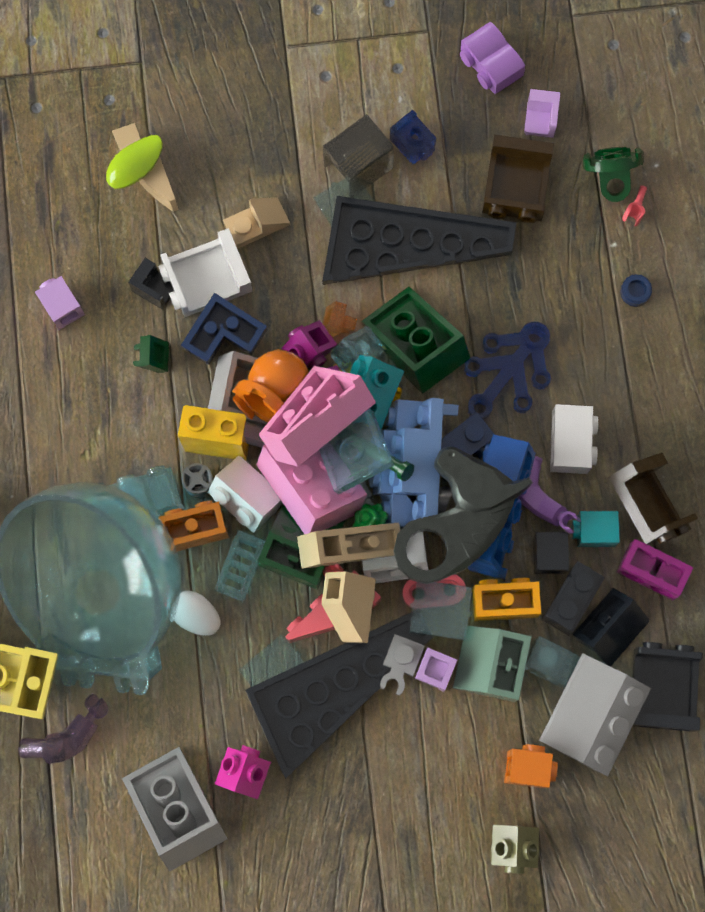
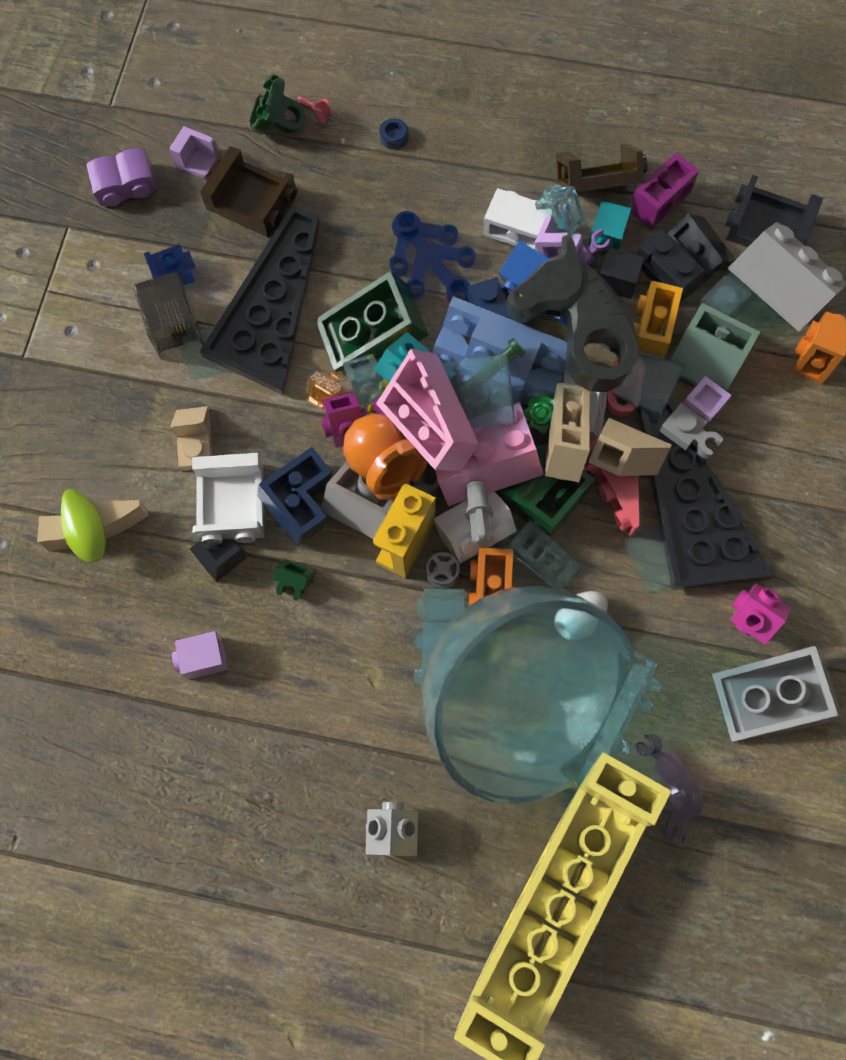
camera: 70 degrees left, 5 degrees down
(247, 490) = (479, 513): none -> light grey axle
(552, 481) = (549, 239): none -> lavender panel
(590, 475) = (564, 206): none -> clear light blue bracket

